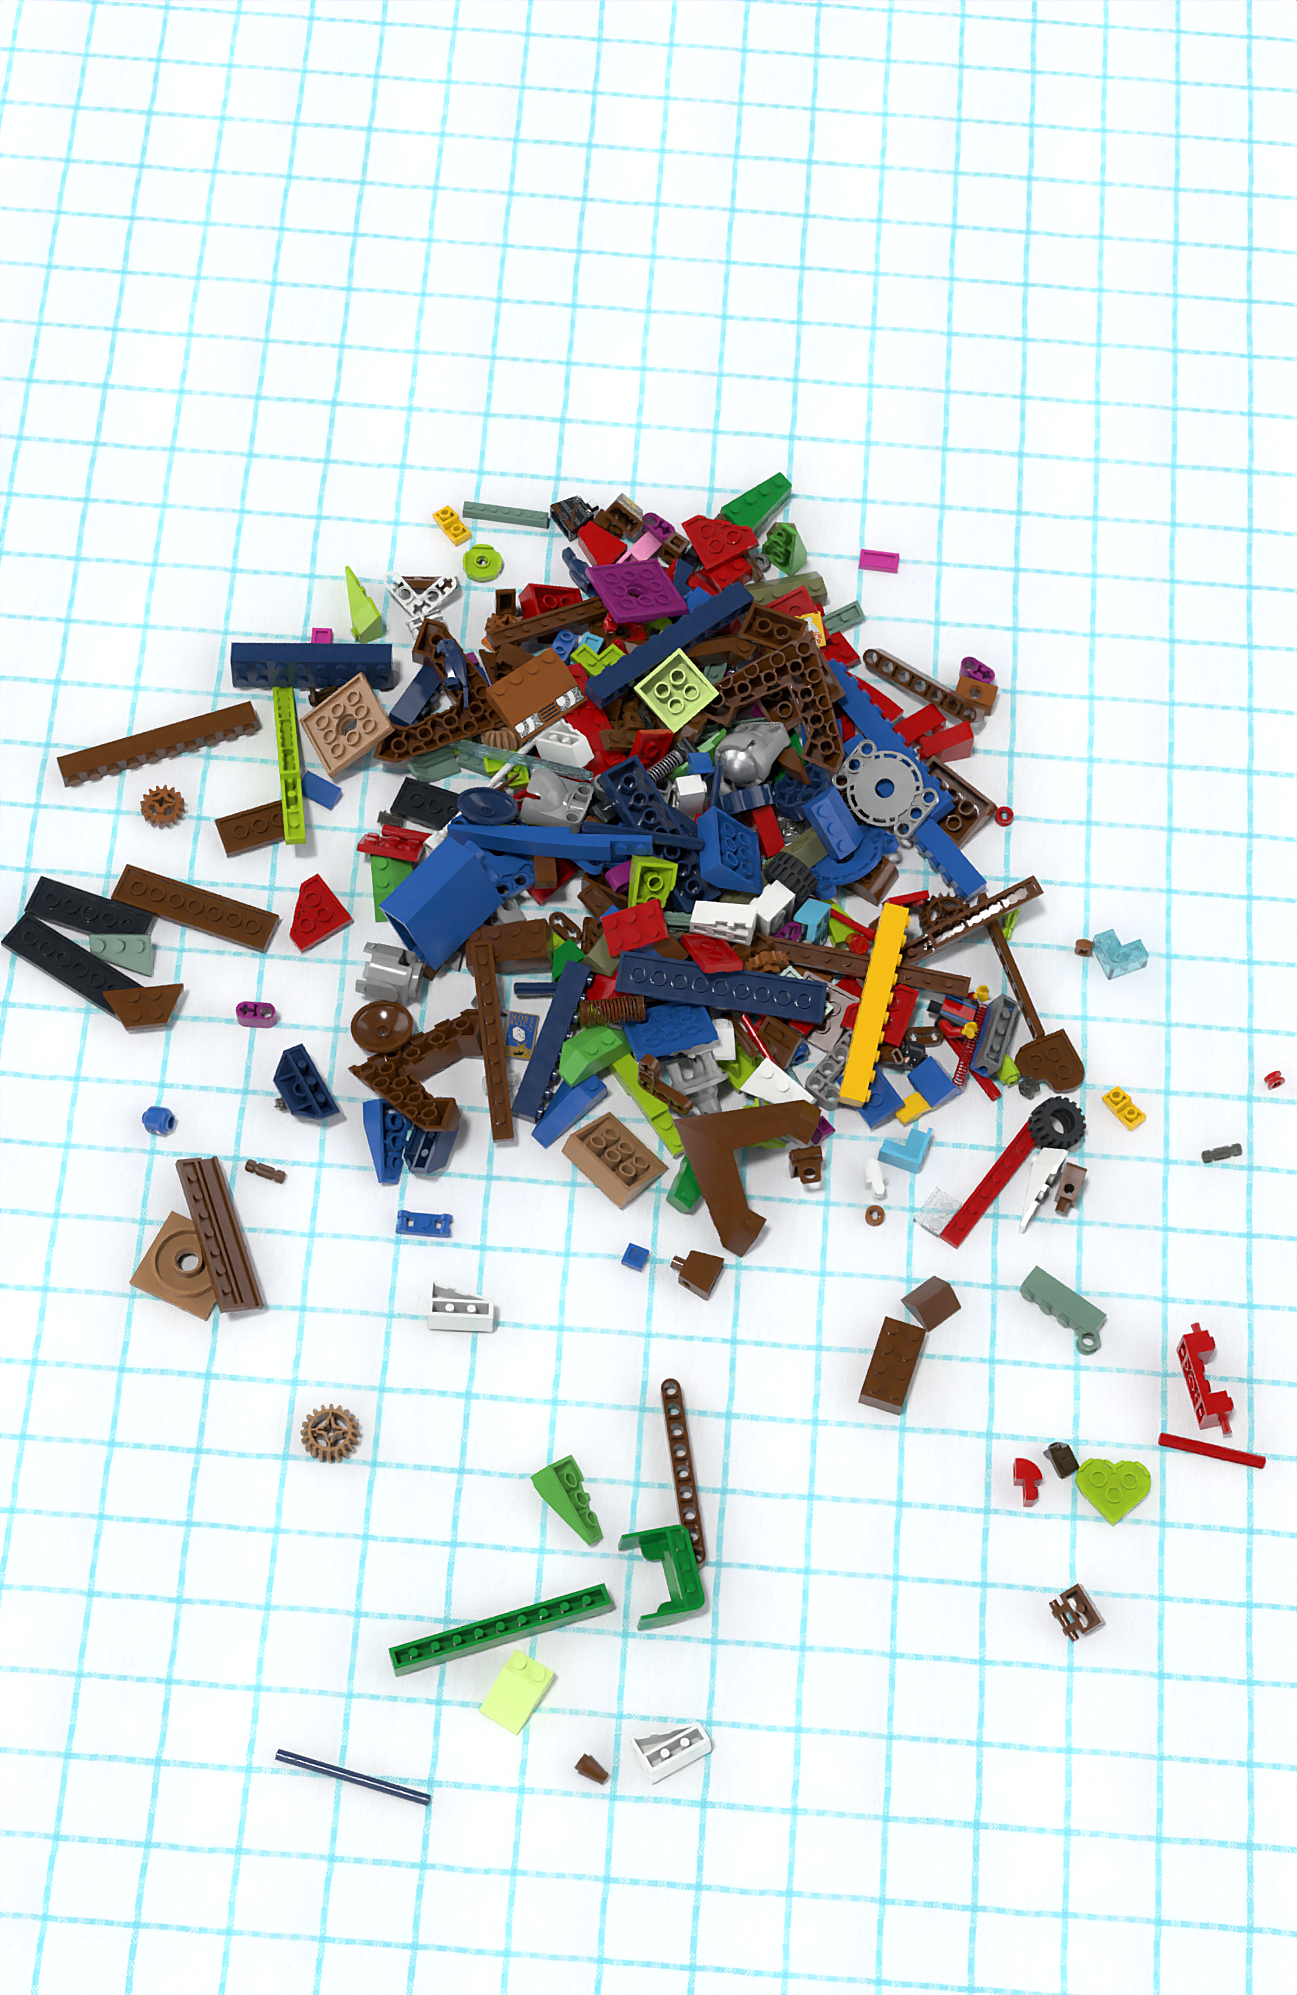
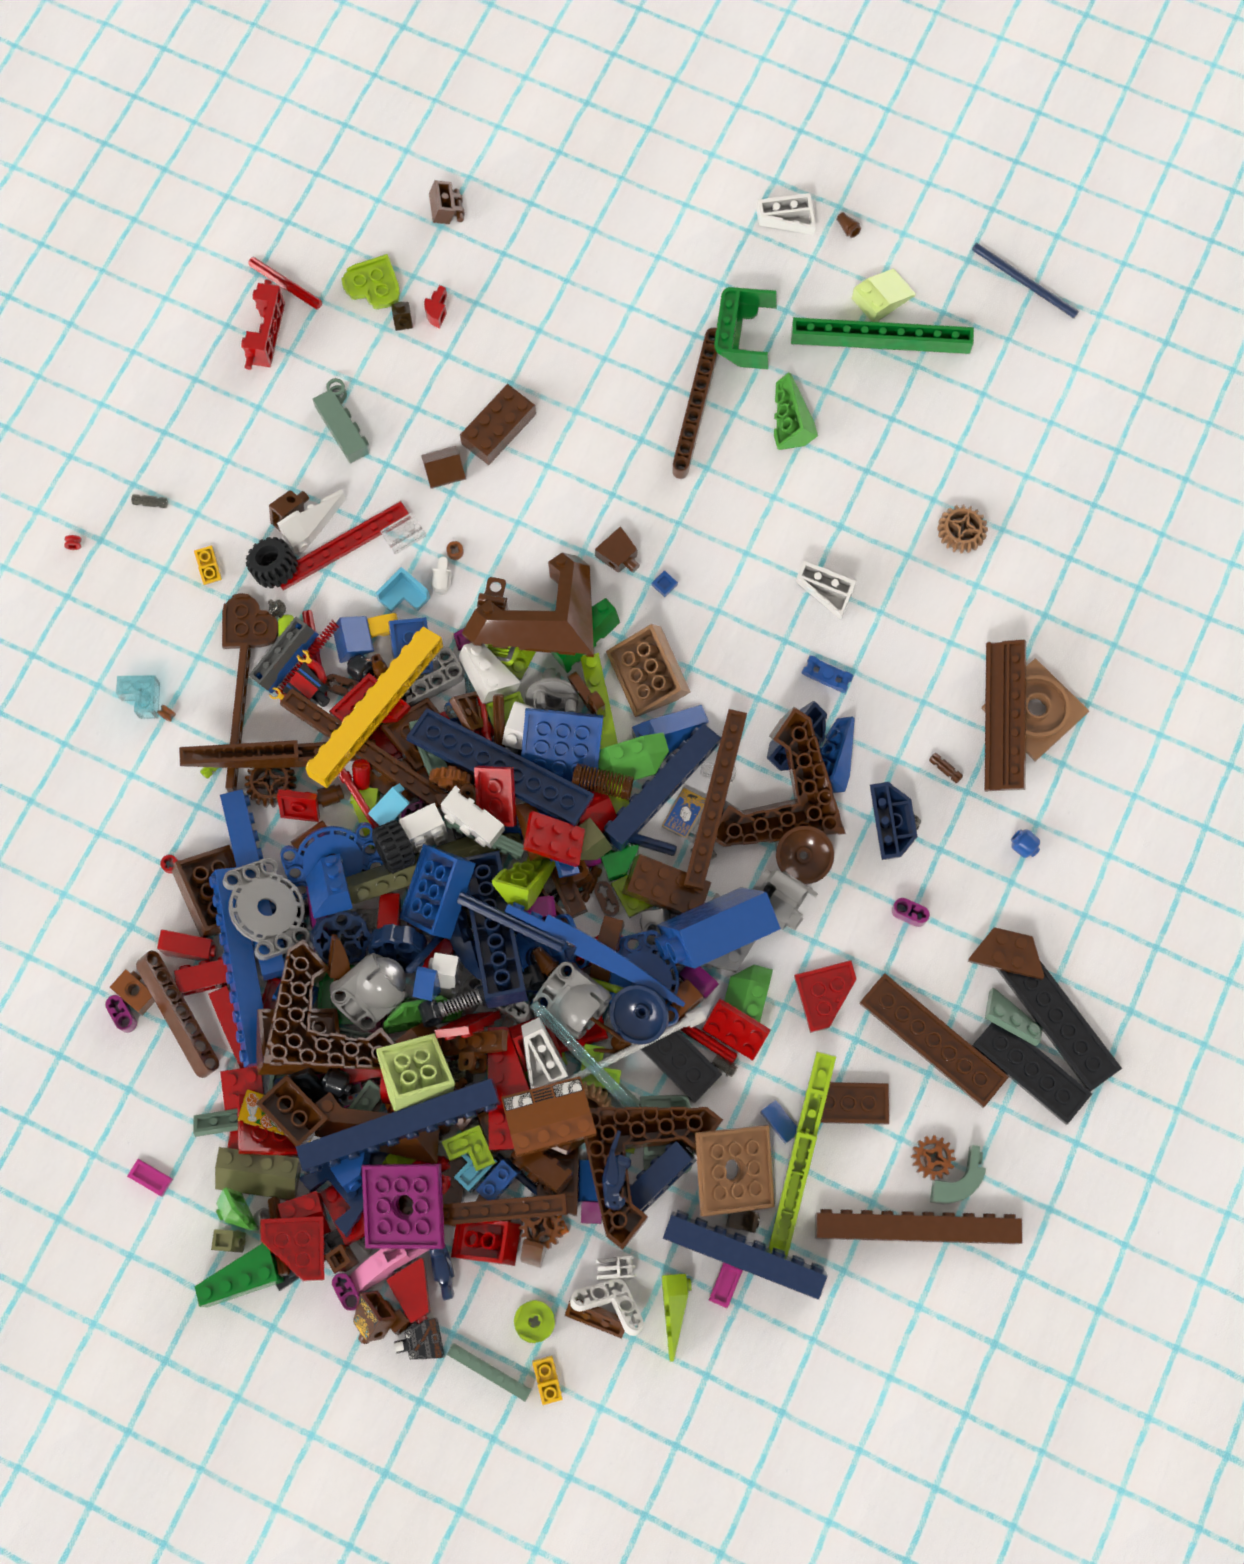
camera: 155 degrees left, 10 degrees up
(127, 788) = (953, 1192): none -> sand green arch

